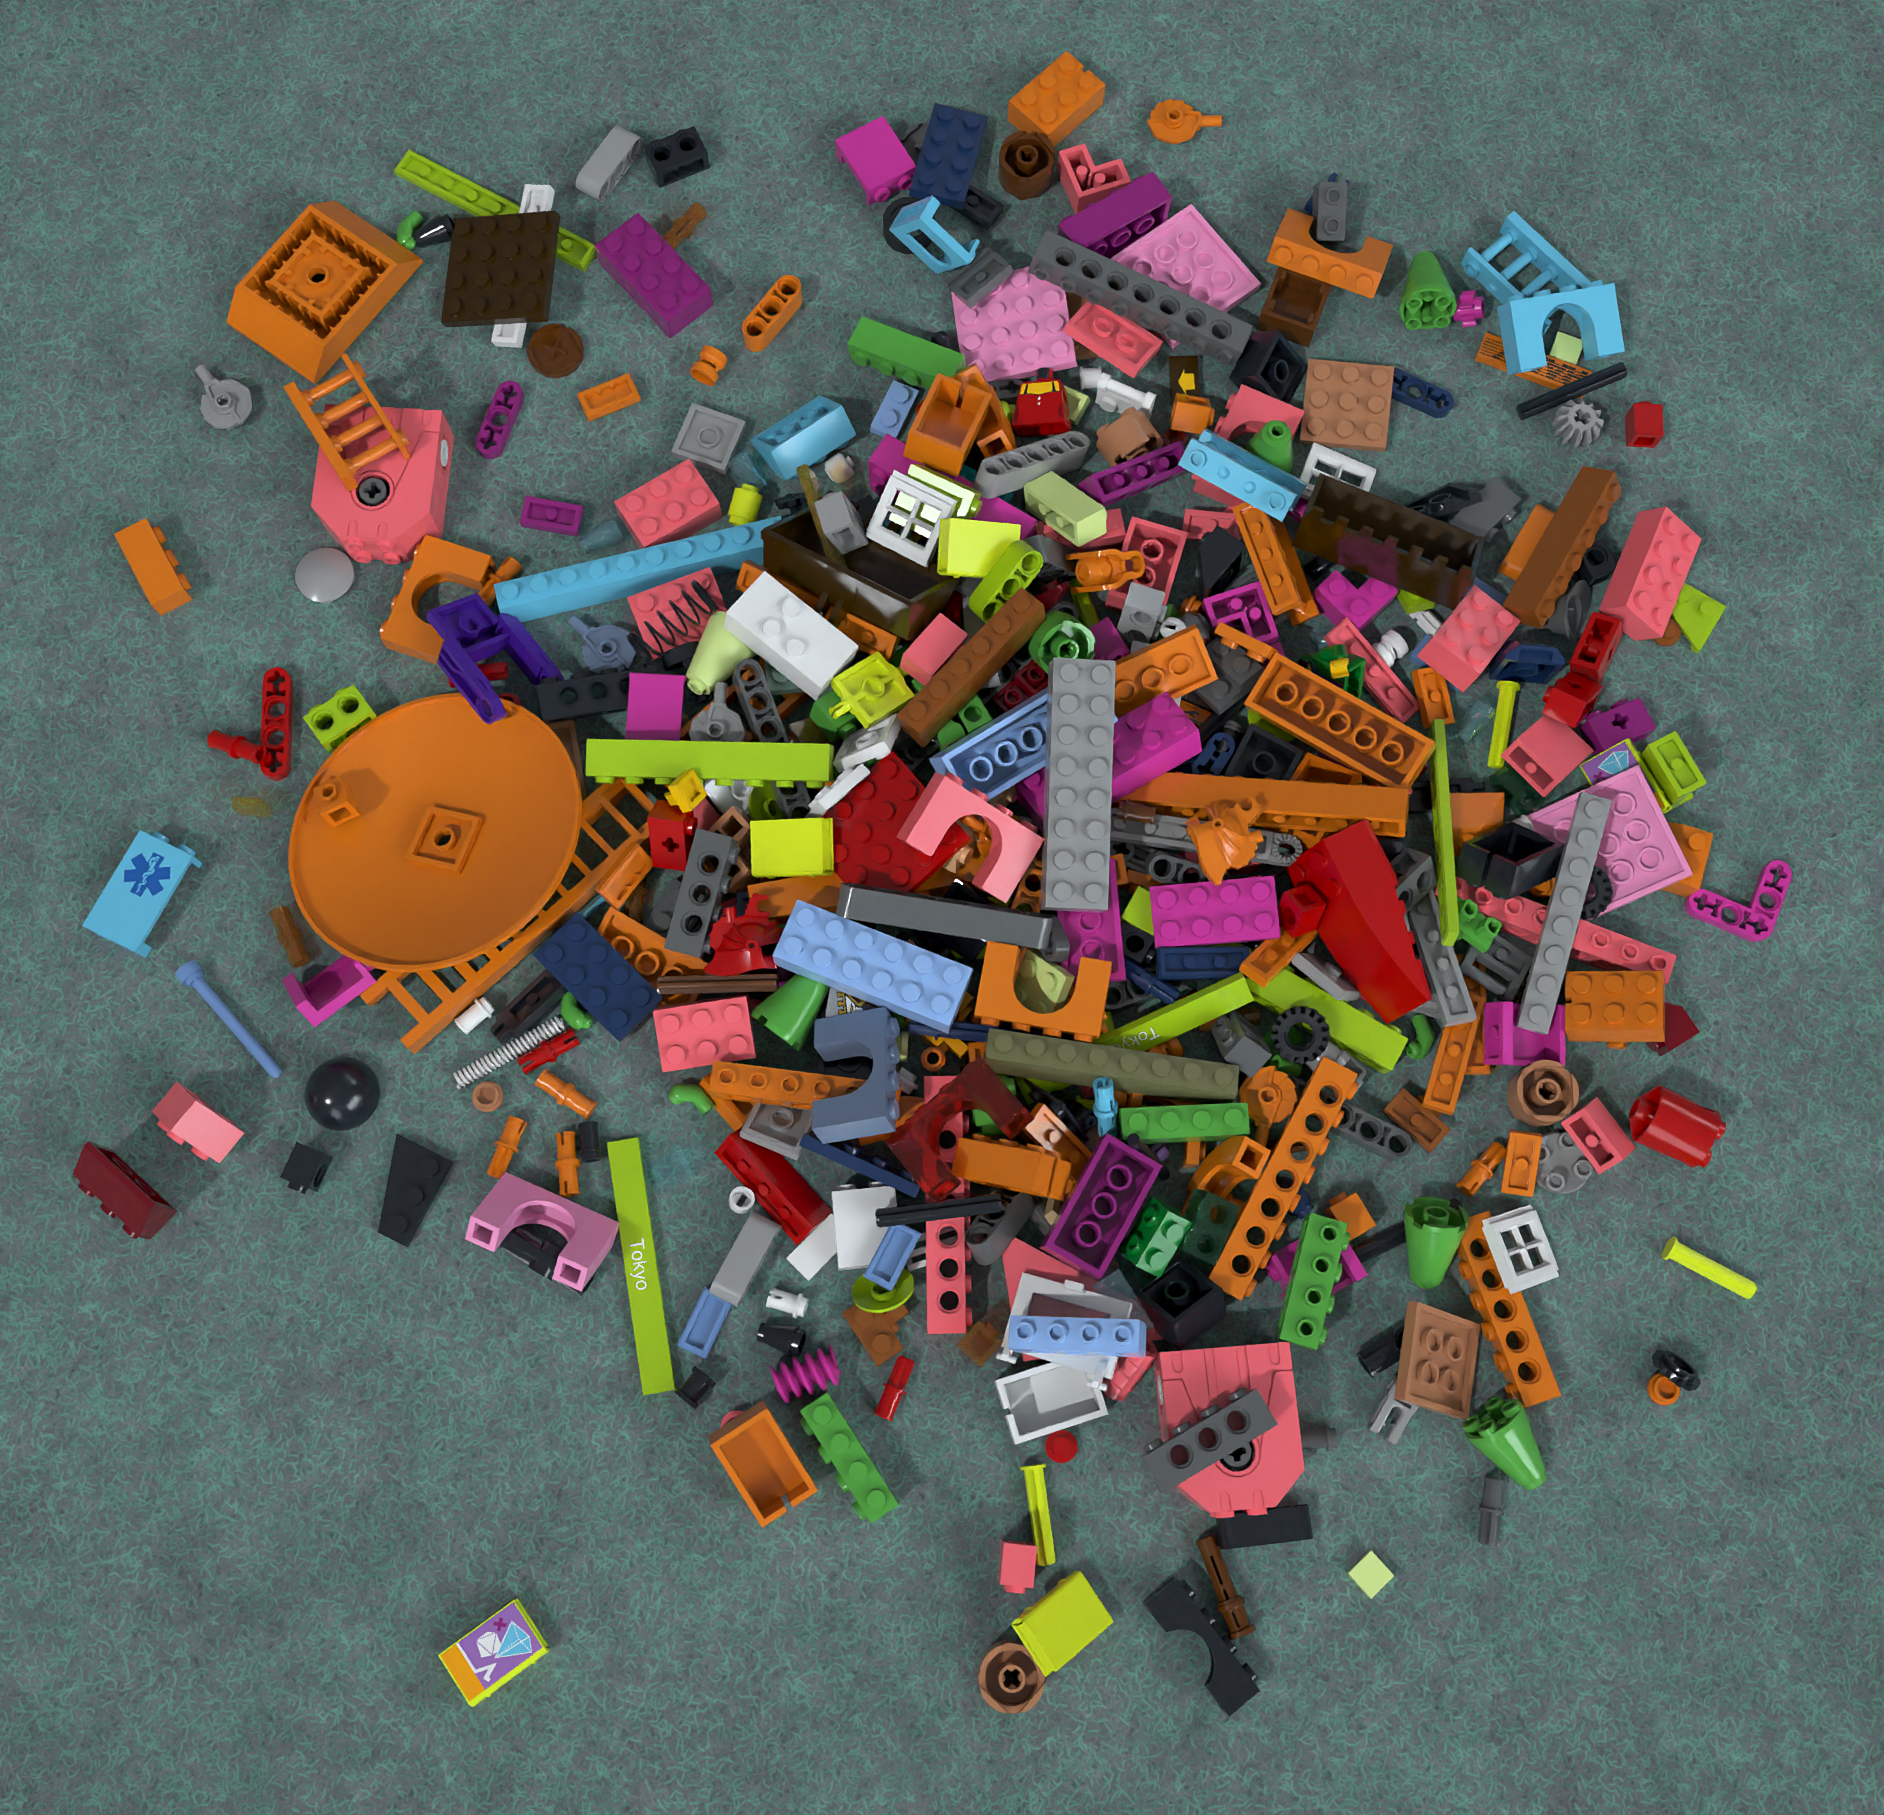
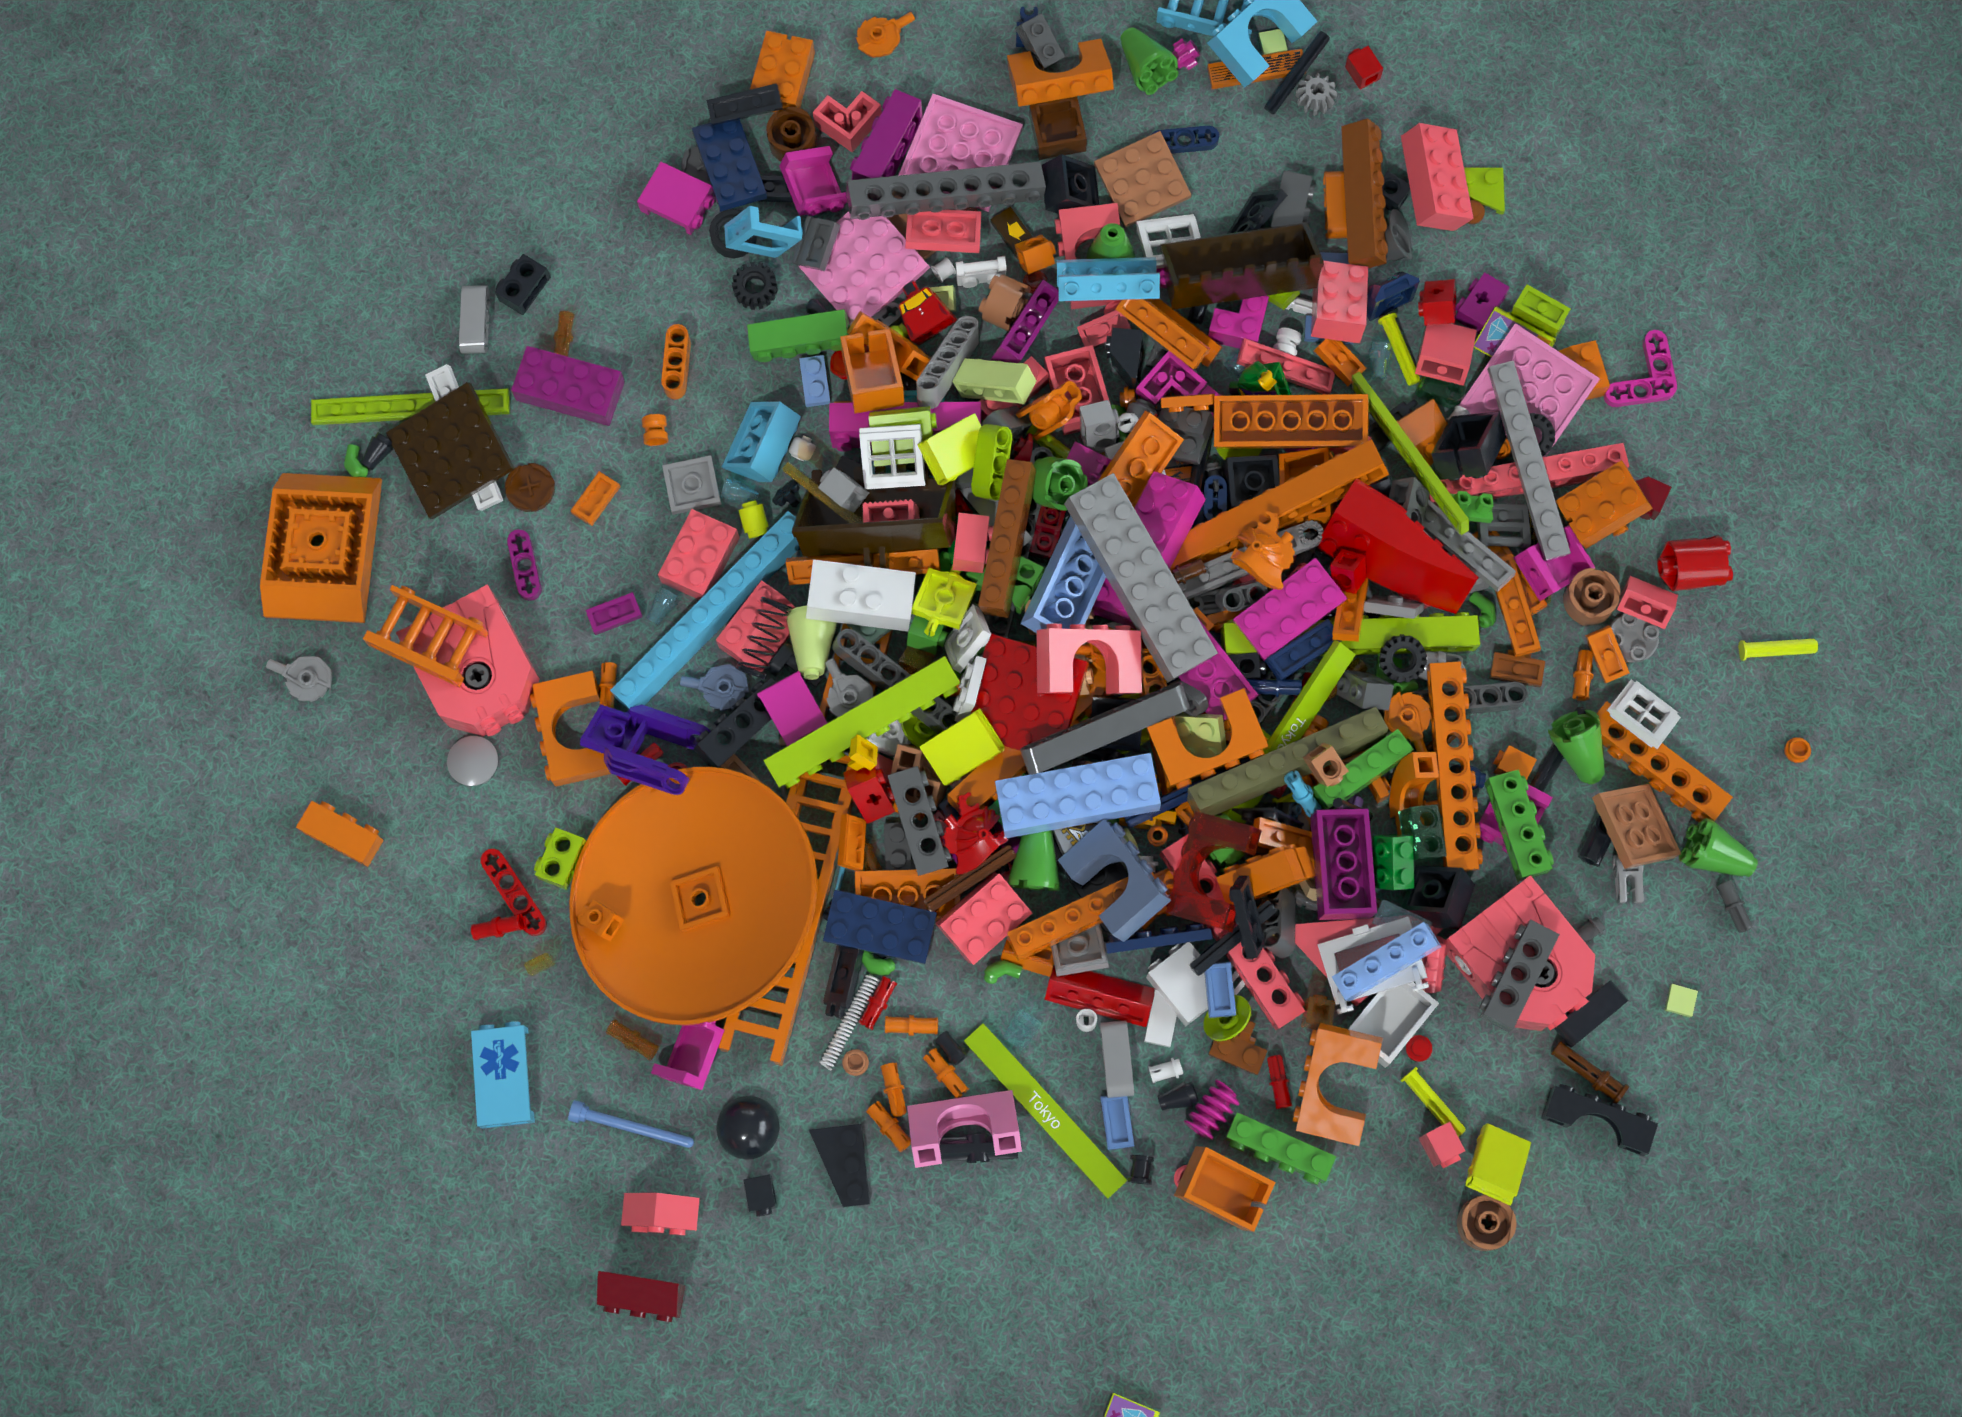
camera: 25 degrees left, 0 degrees up
(475, 1015) = (807, 1010): white pin -> none
(476, 1177) = (889, 1126): none -> orange pin
(874, 570) = (890, 511): none -> coral brick
(896, 272) = (754, 272): none -> black tyre
(909, 1445) = (1330, 1047): none -> orange arch
(962, 1197) = (1247, 916): none -> black plate
(998, 106) = (744, 104): none -> black plate
(1017, 217) = (812, 181): none -> dark pink panel
(1141, 1080) = (1316, 760): none -> nougat brick
(1596, 646) = (1432, 253): red brick -> none
(1676, 1370) = (1798, 731): black gear -> none

